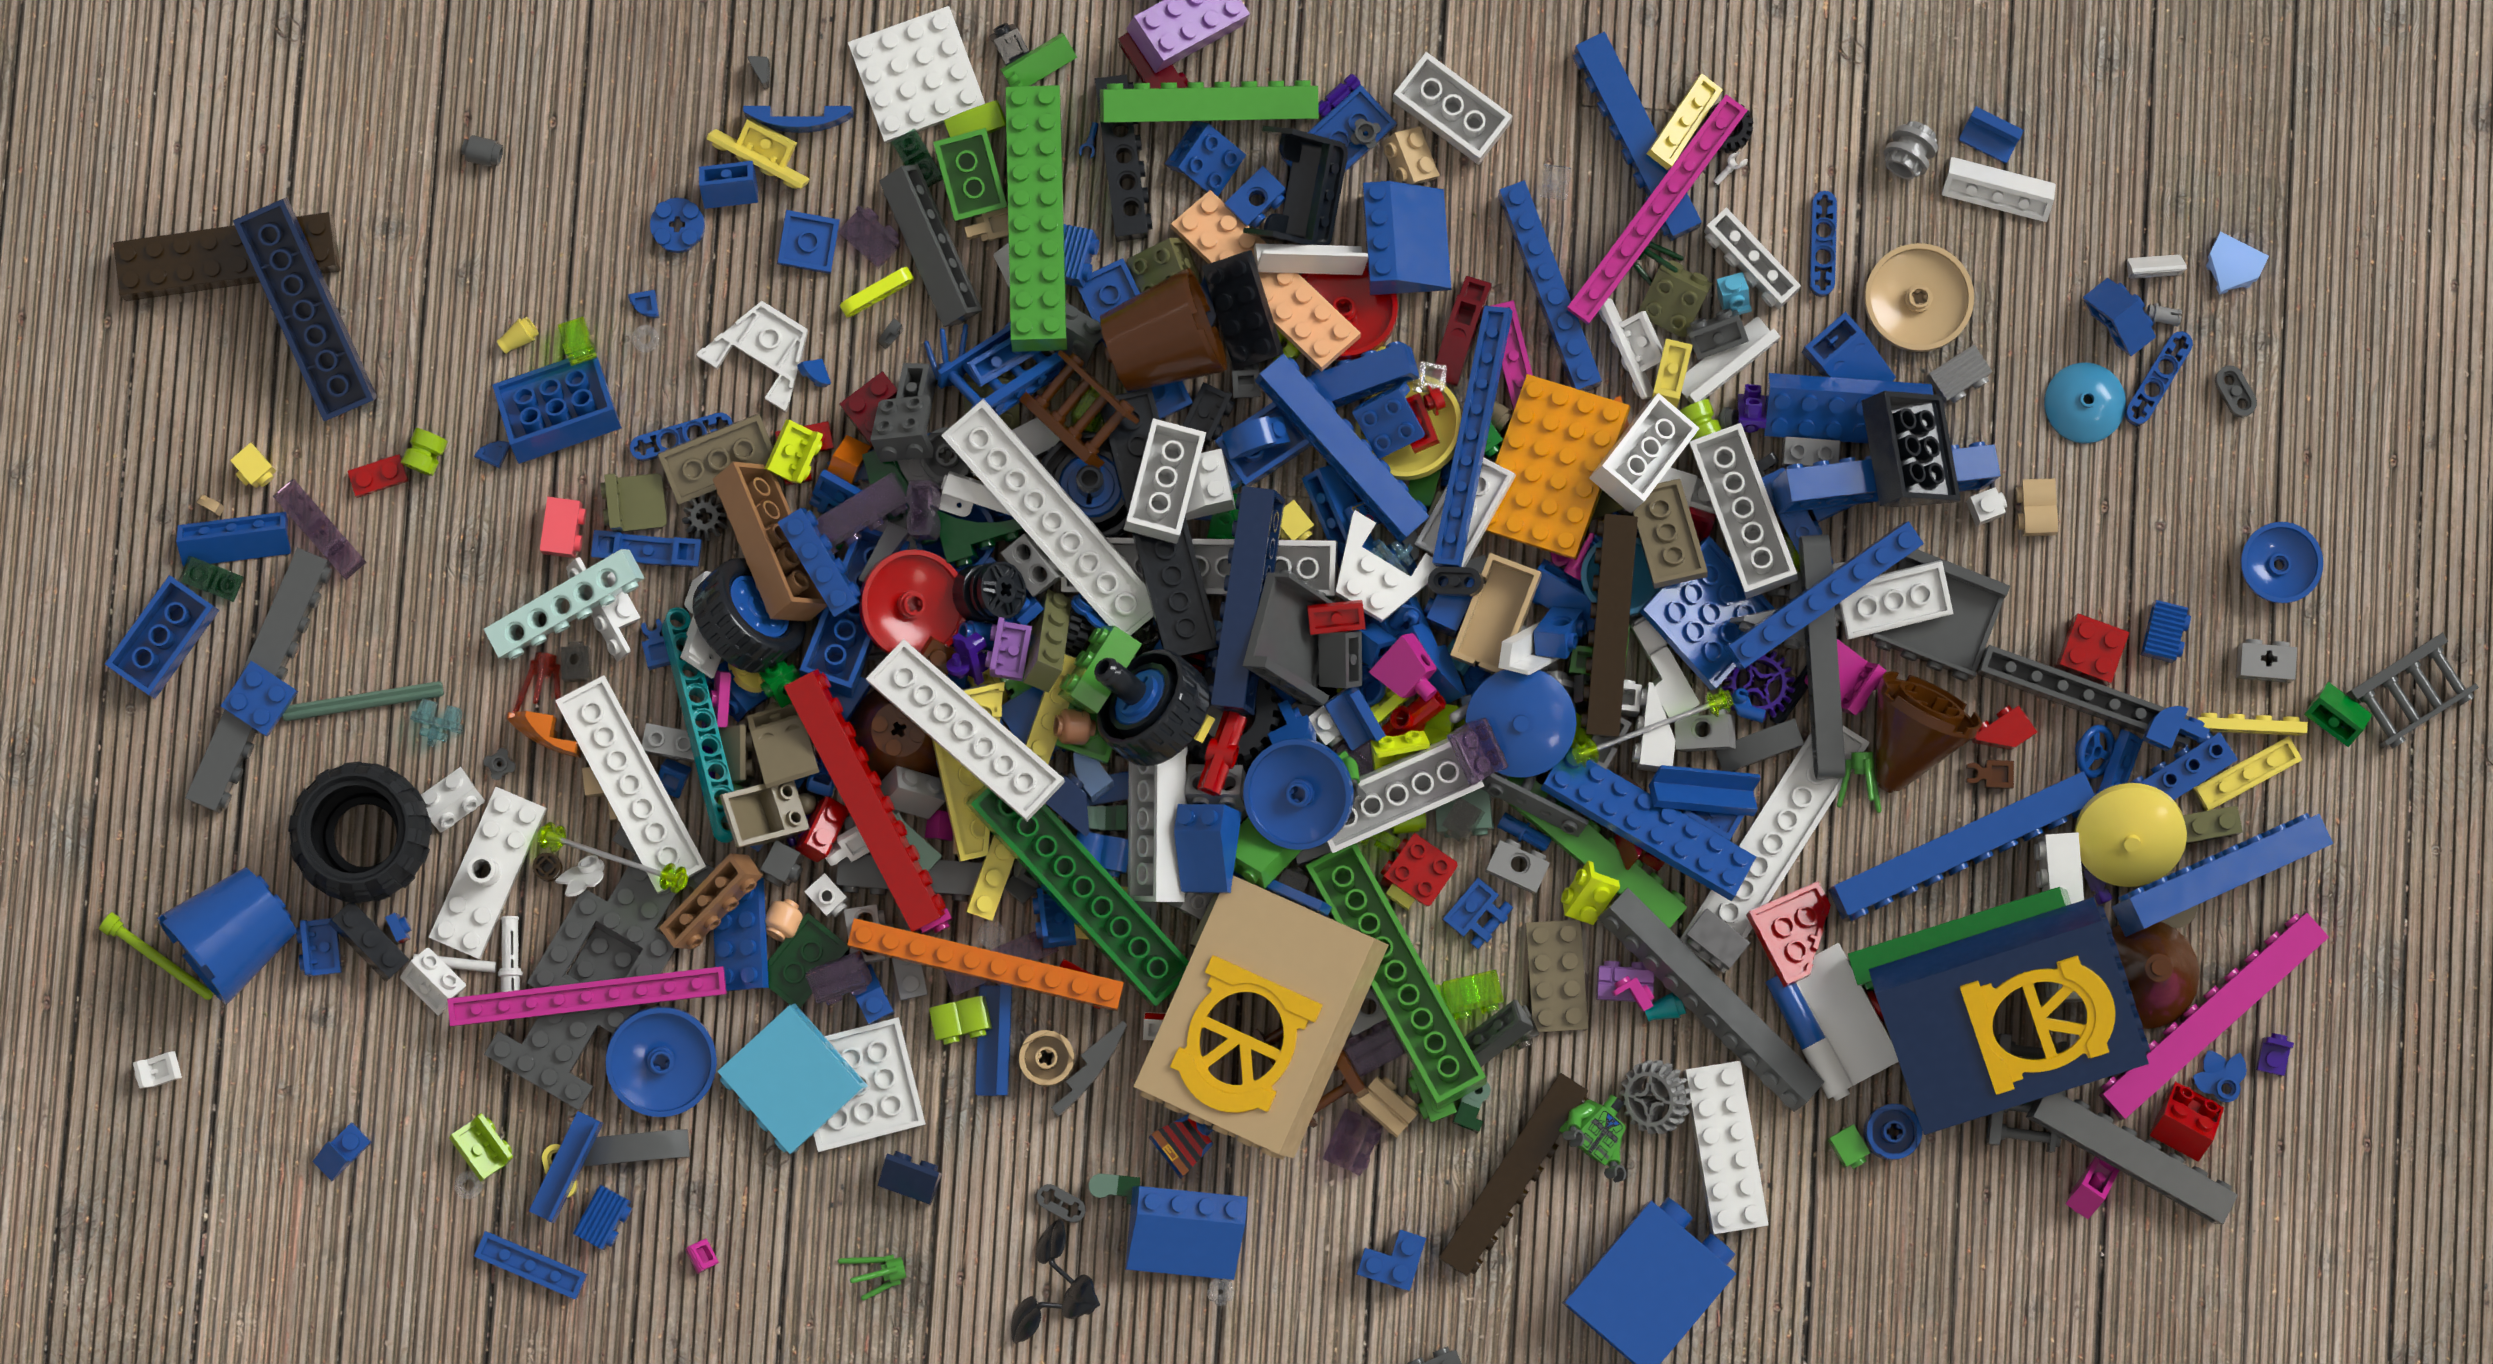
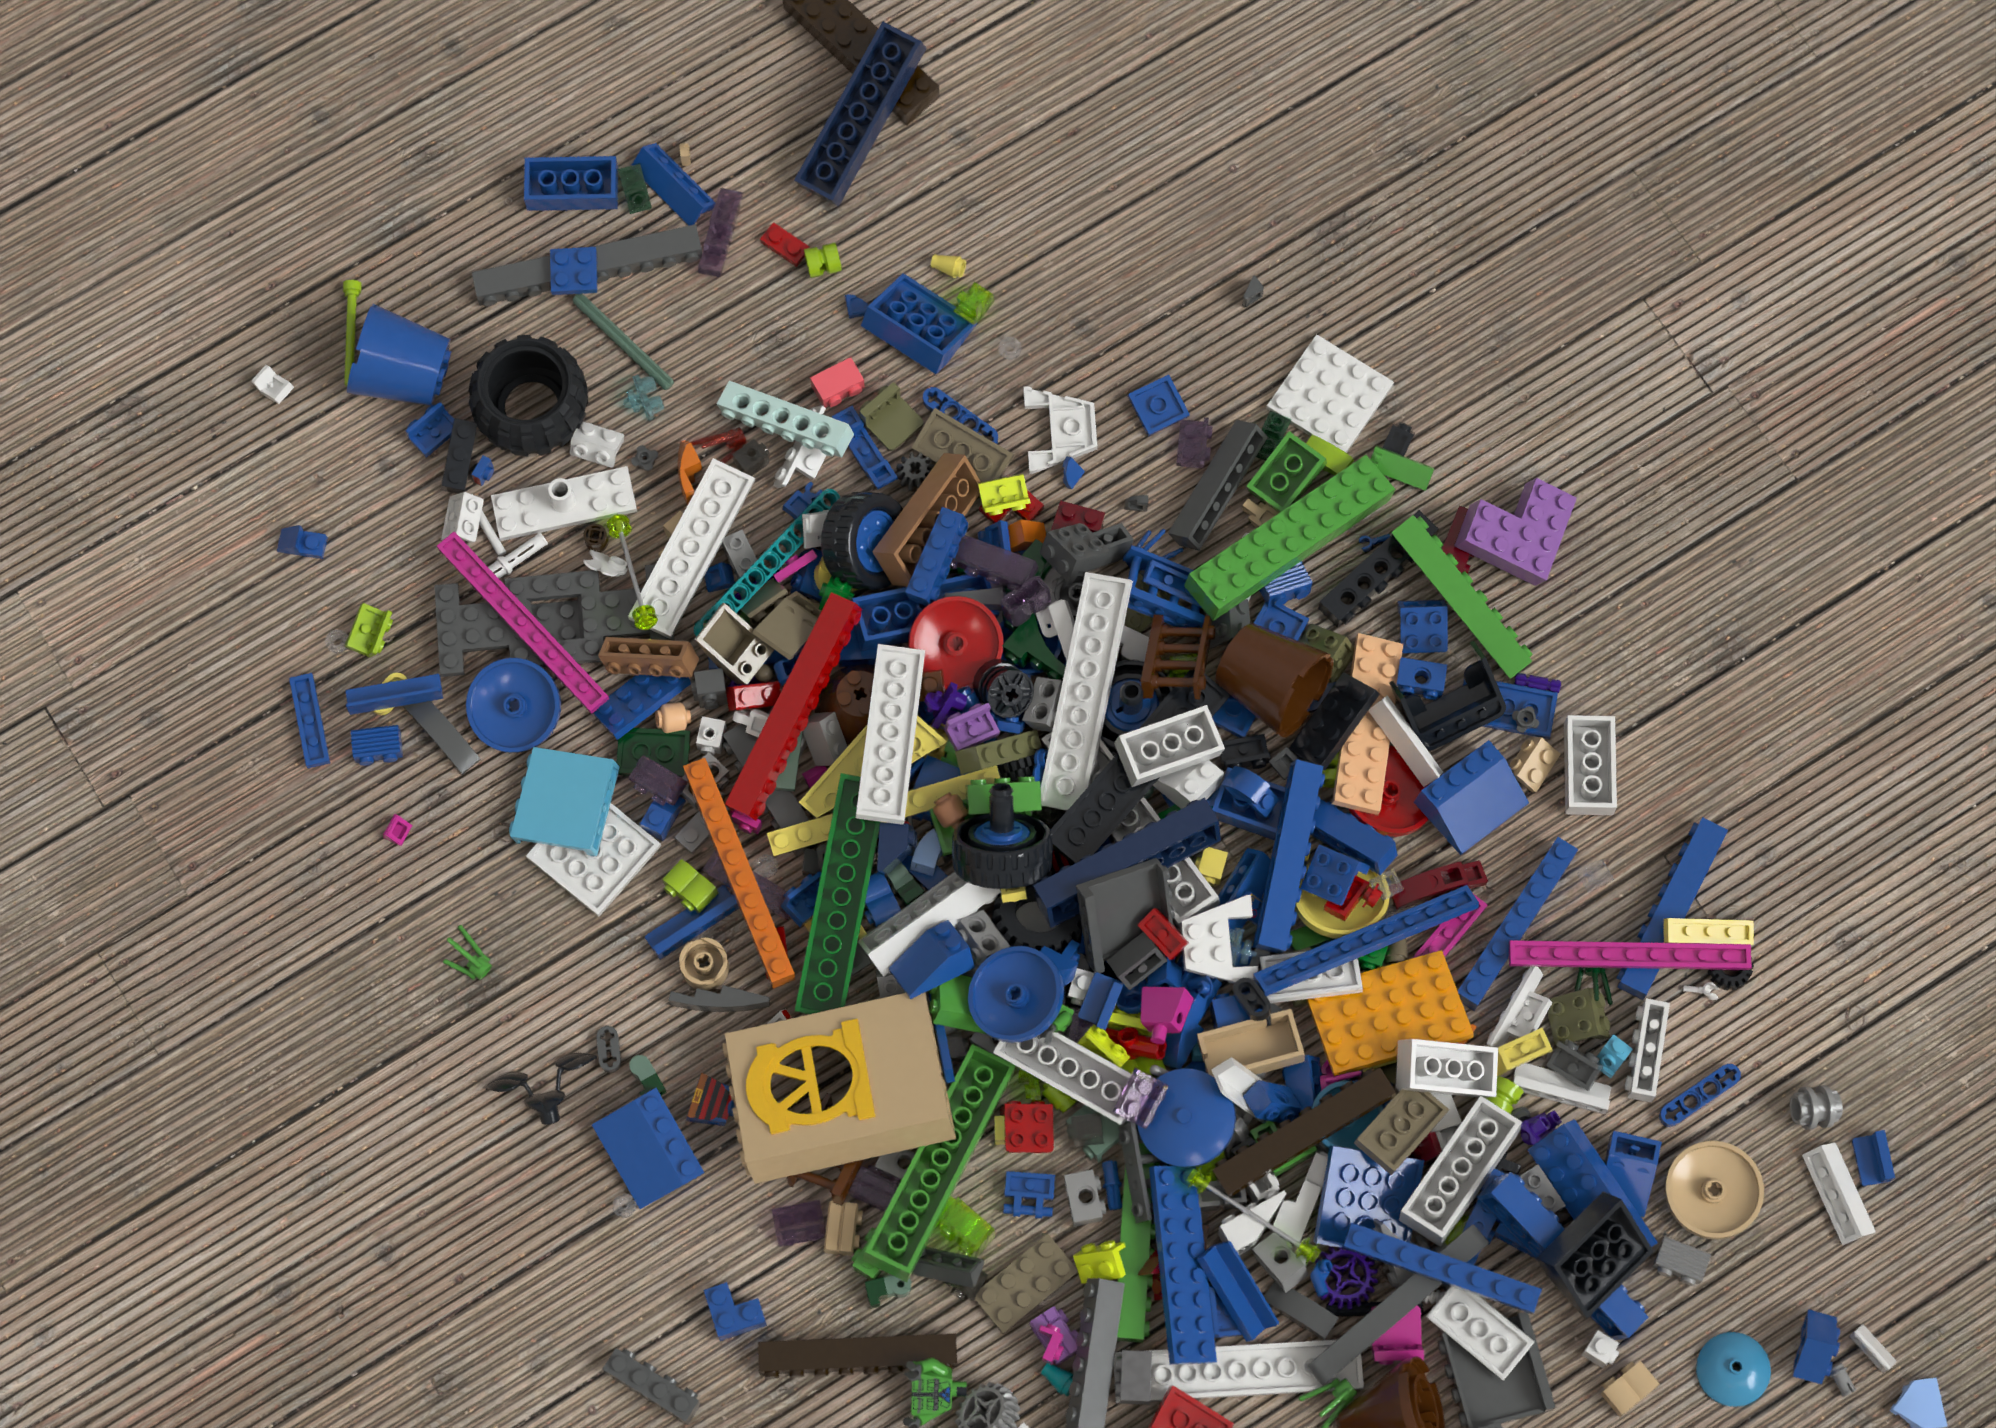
camera: 55 degrees right, 10 degrees down
(253, 467) = (731, 161): light yellow brick -> none
(482, 151) = (1057, 155): dark grey brick -> none
(645, 303) = (1034, 331): blue tile -> none
(688, 236) = (1104, 301): blue plate -> none
(728, 184) = (1156, 324): blue brick -> none
(765, 148) = (1199, 331): light yellow bracket -> none
(832, 117) = (1256, 360): blue slope -> none
(877, 292) = (1158, 474): neon yellow beam -> none
(910, 1178) = (552, 934): dark blue slope -> none
(1221, 753) = (1006, 922): red piece -> none
(2158, 378) = (1793, 1410): blue beam -> none

